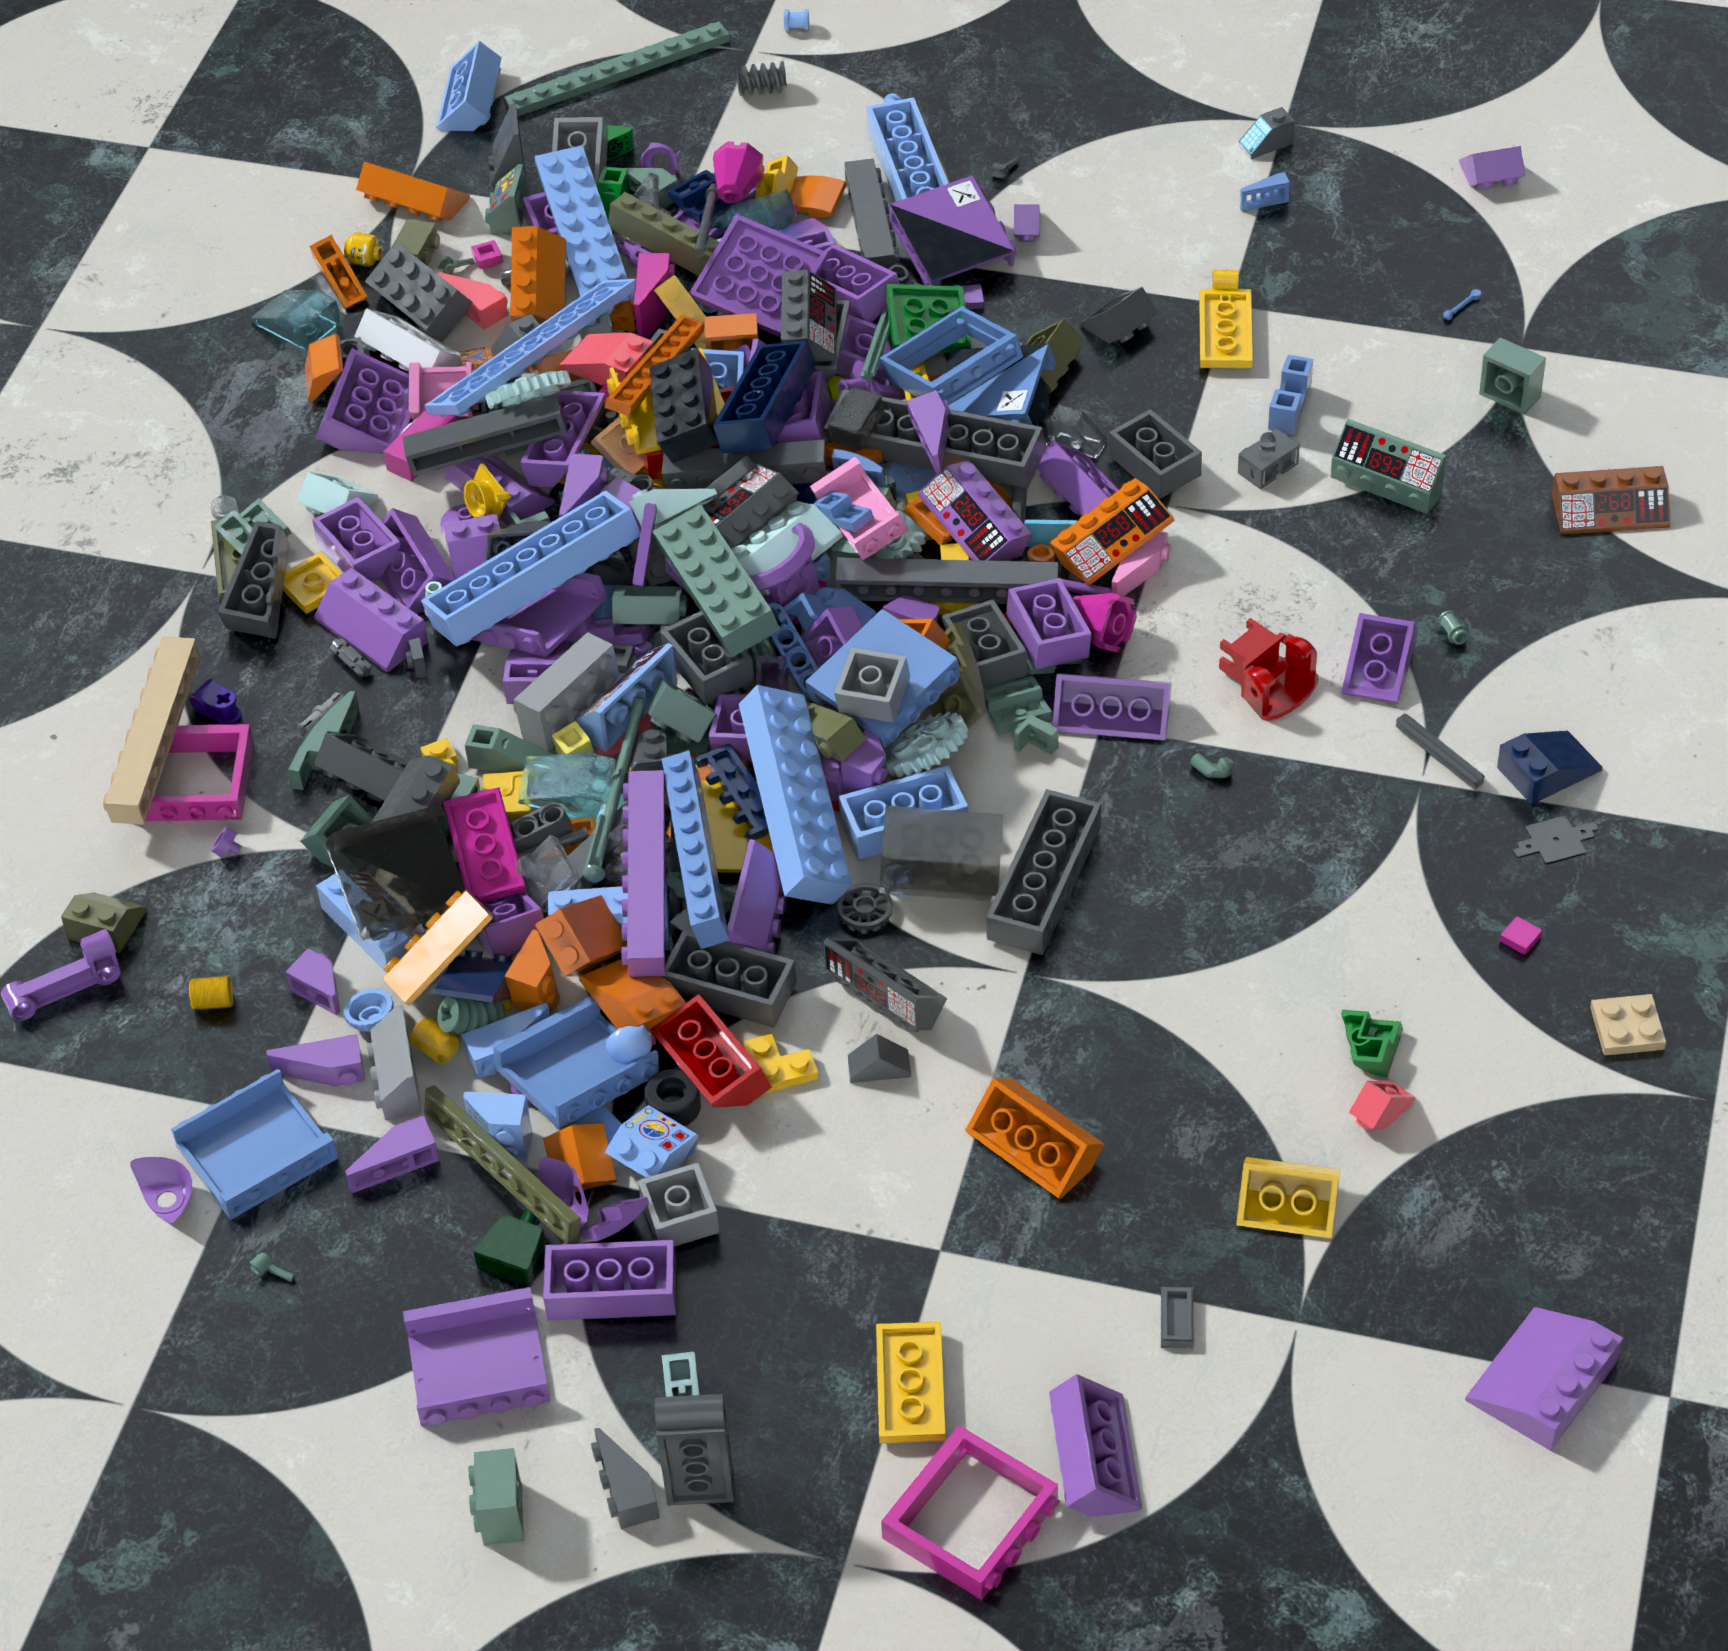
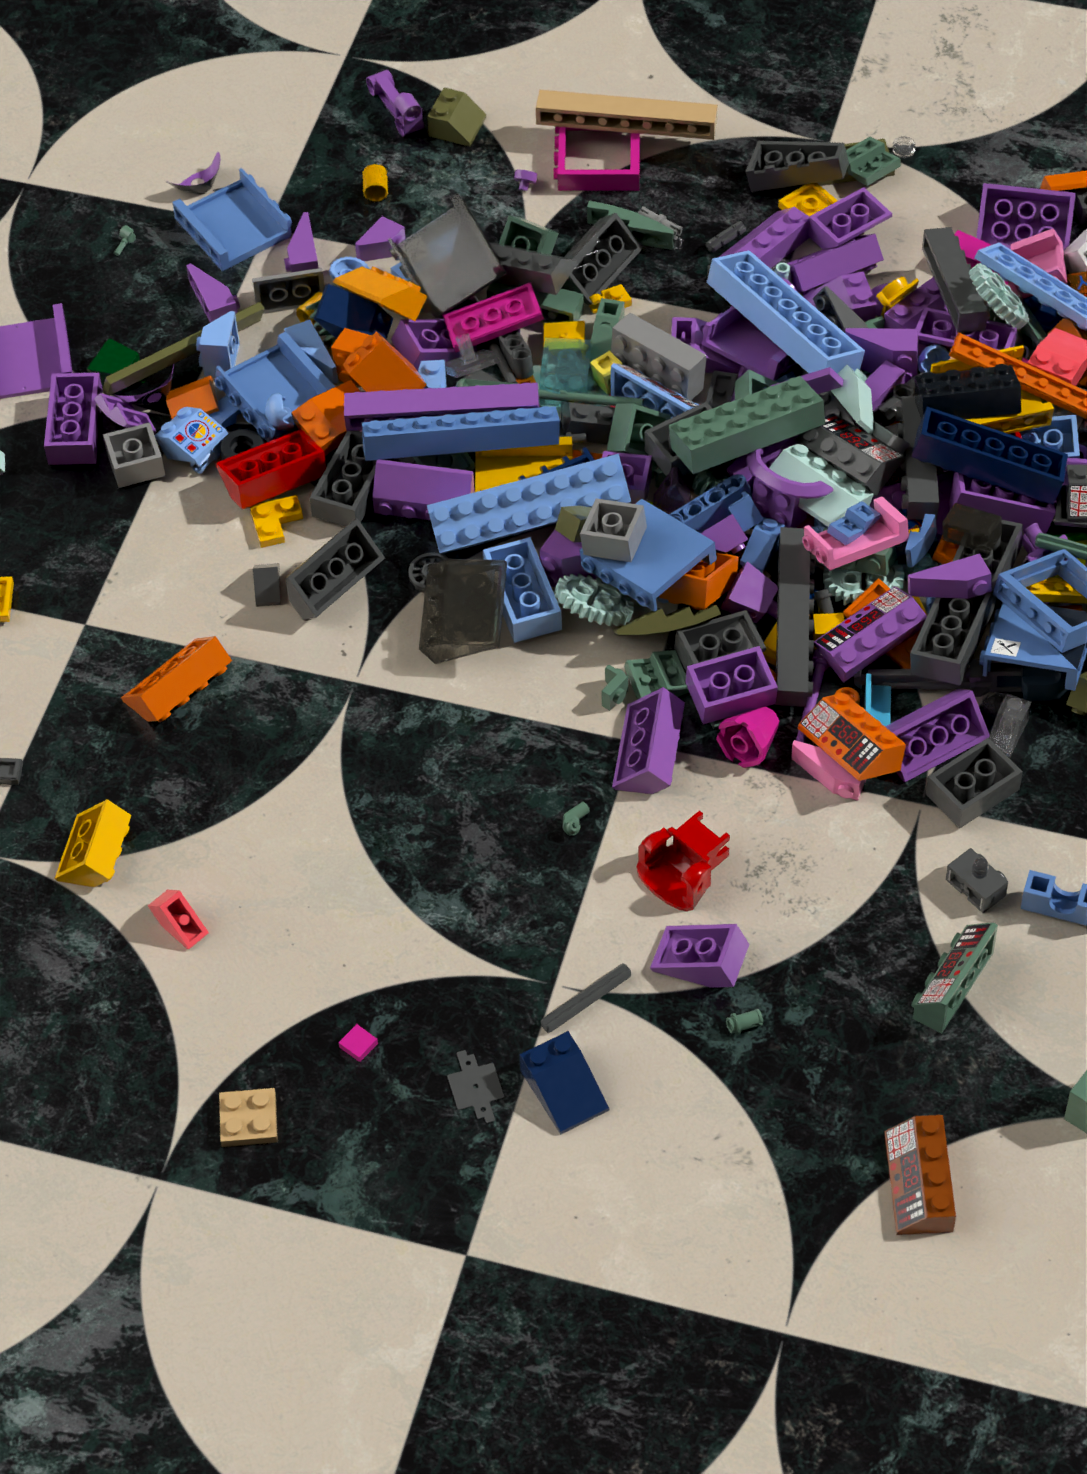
camera: 90 degrees right, 5 degrees up
(216, 703) = (674, 160): dark purple piece -> none
(326, 492) = (913, 210): light aqua slope -> none
(1043, 872) = (449, 685): dark grey brick -> none
(1372, 1041) = (248, 919): green slope -> none

